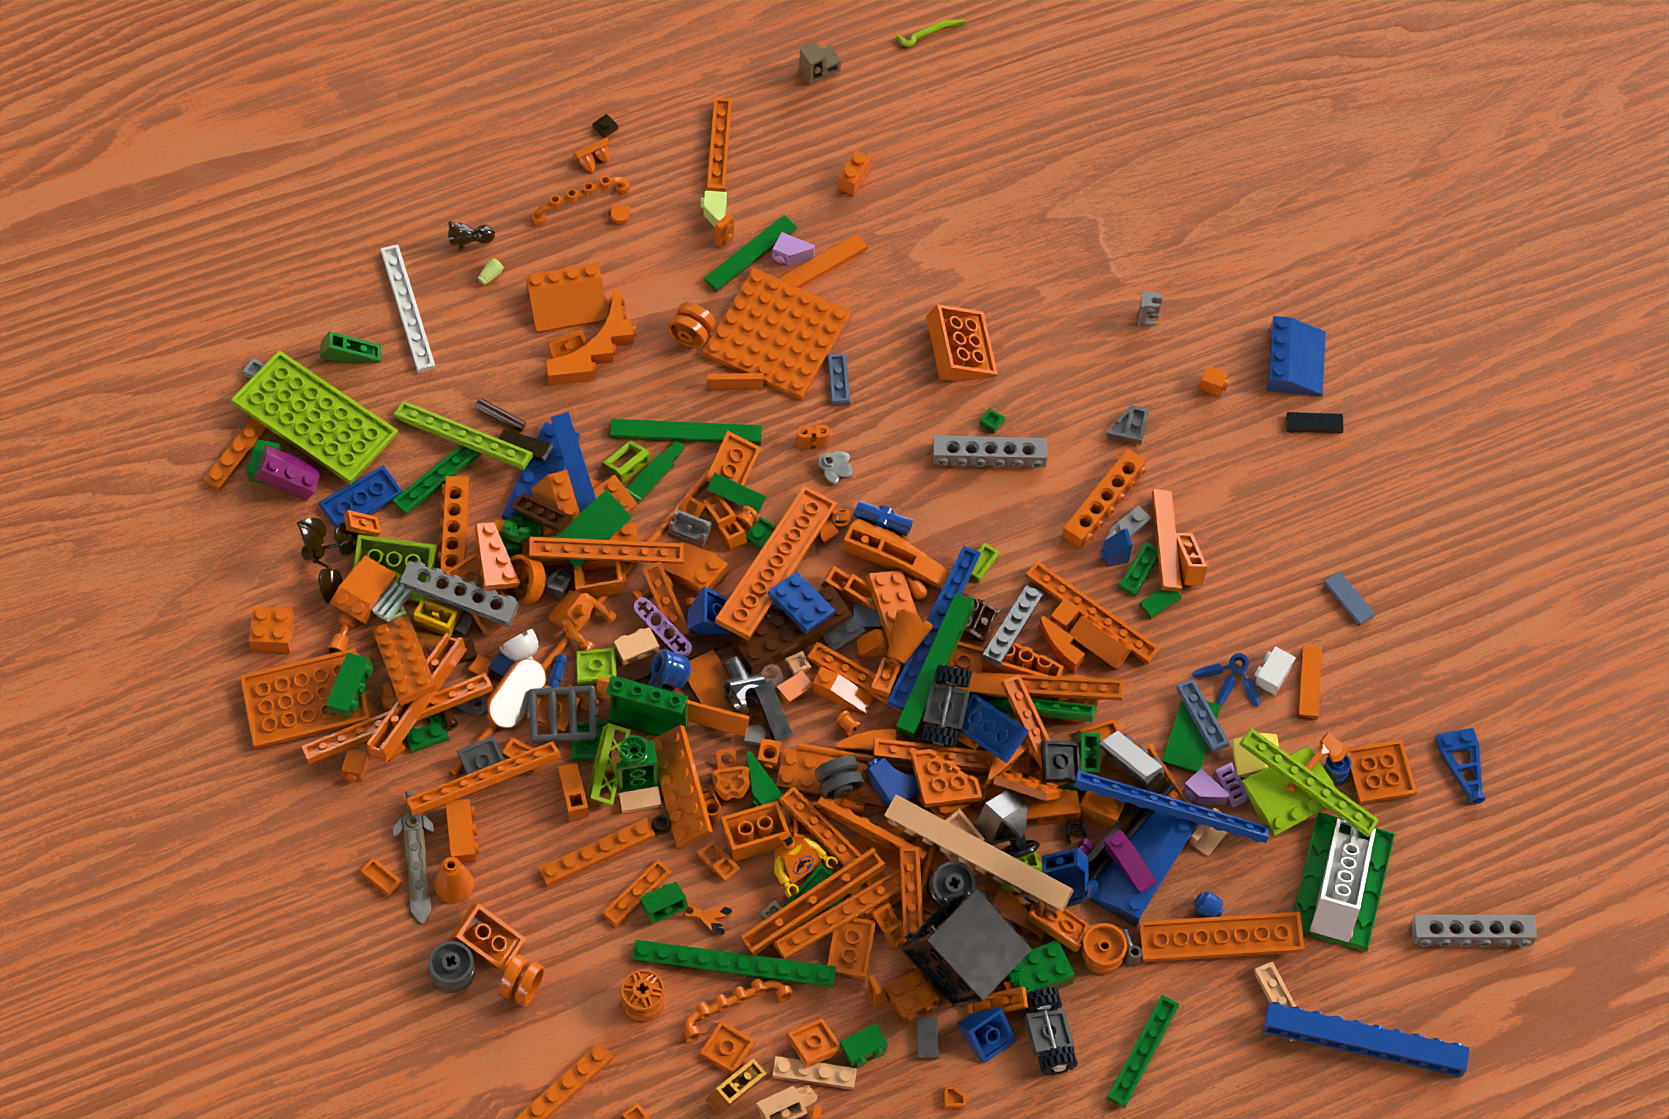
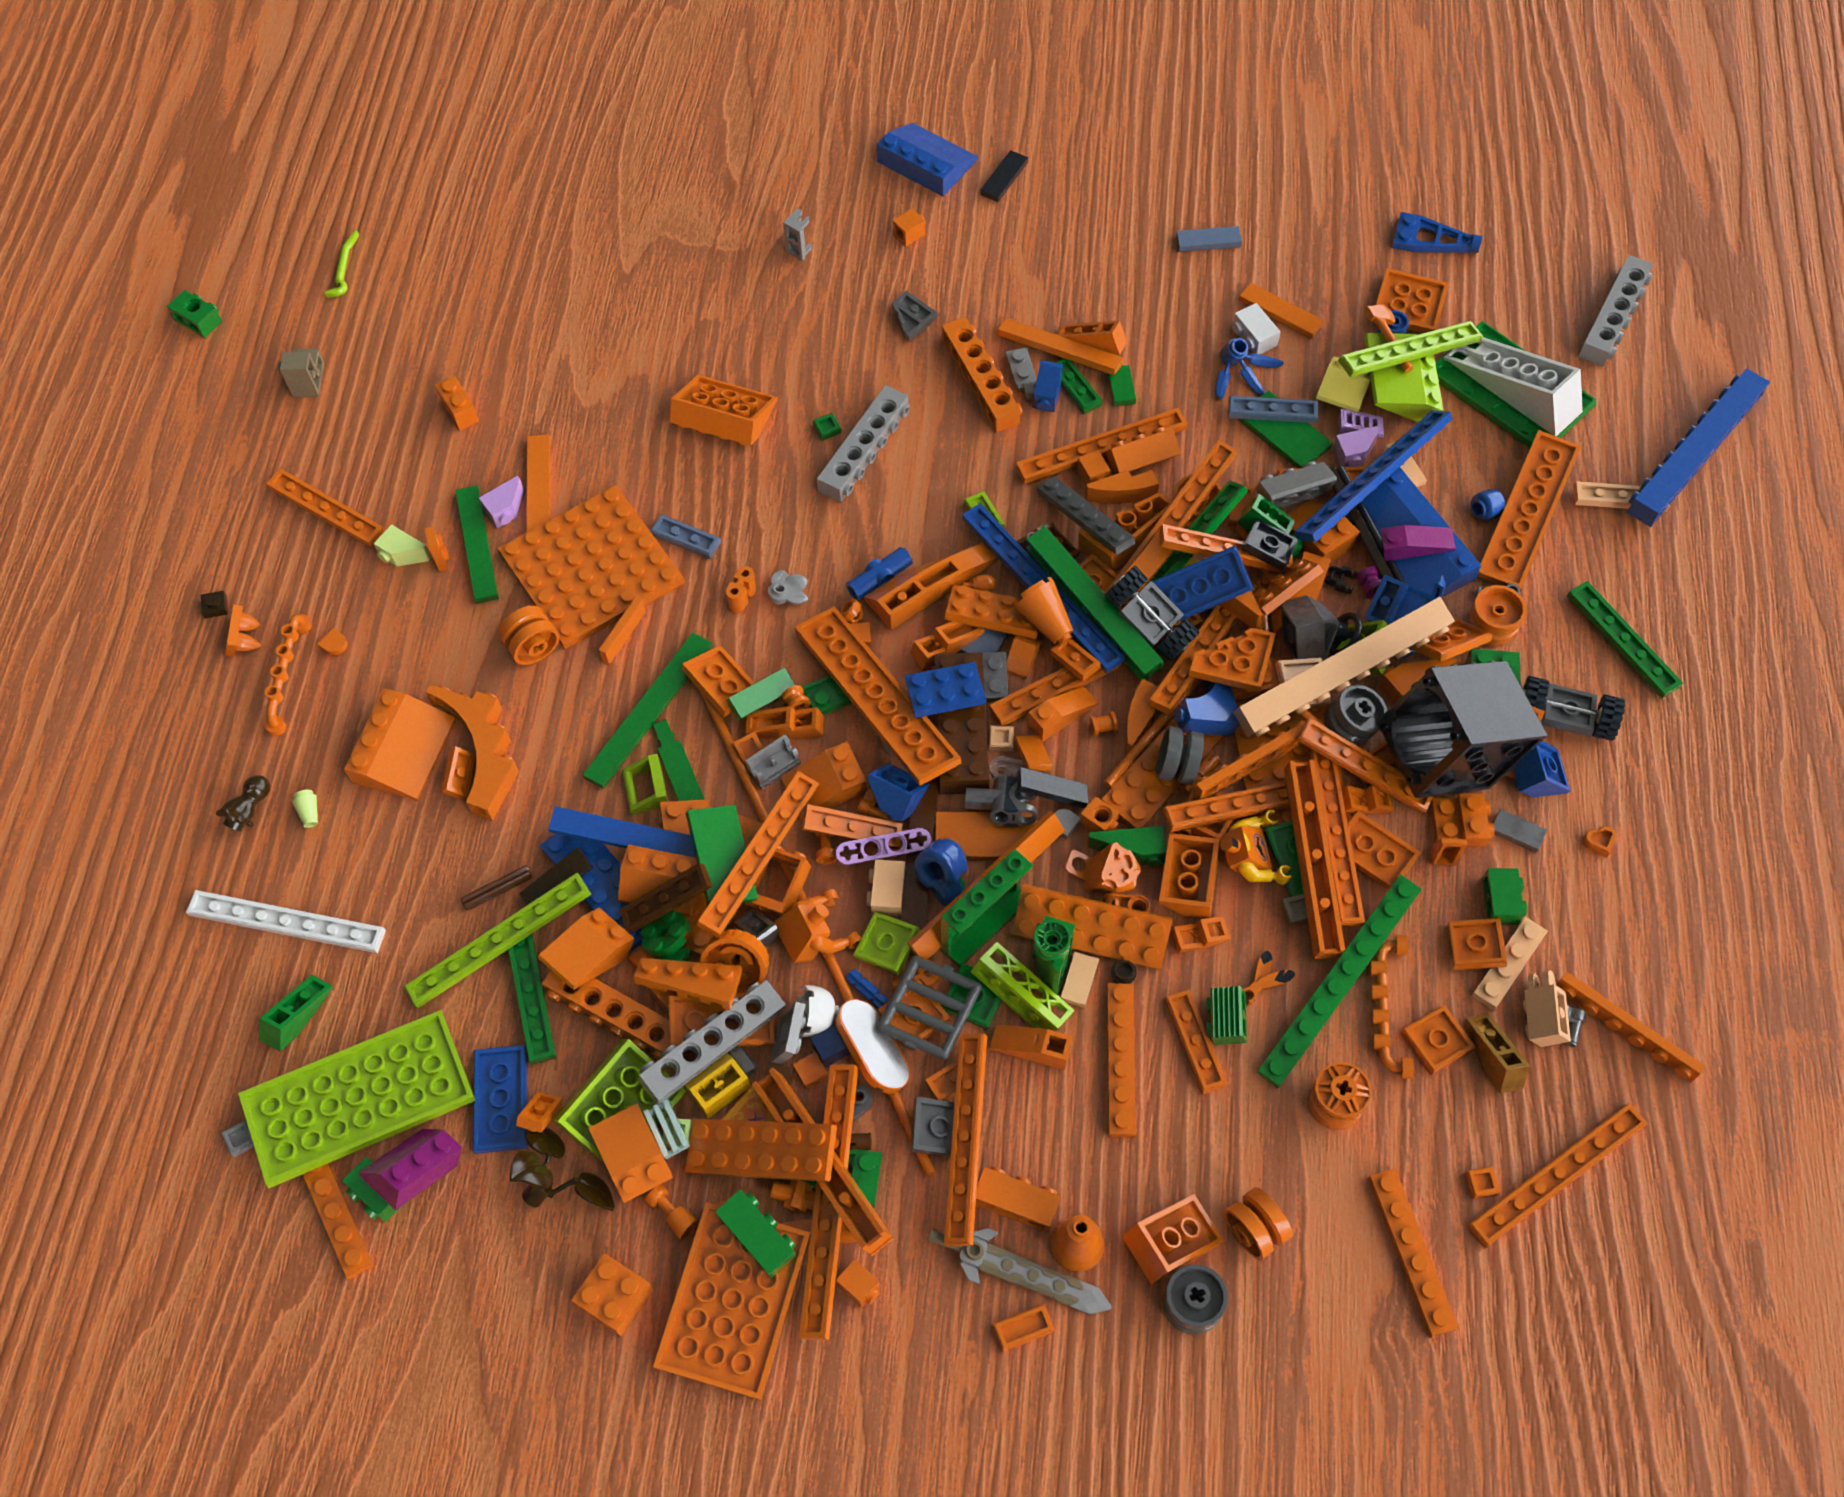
camera: 55 degrees left, 0 degrees up
(483, 489) = (587, 949): none -> orange slope
(487, 641) = (787, 1033): none -> light grey plate

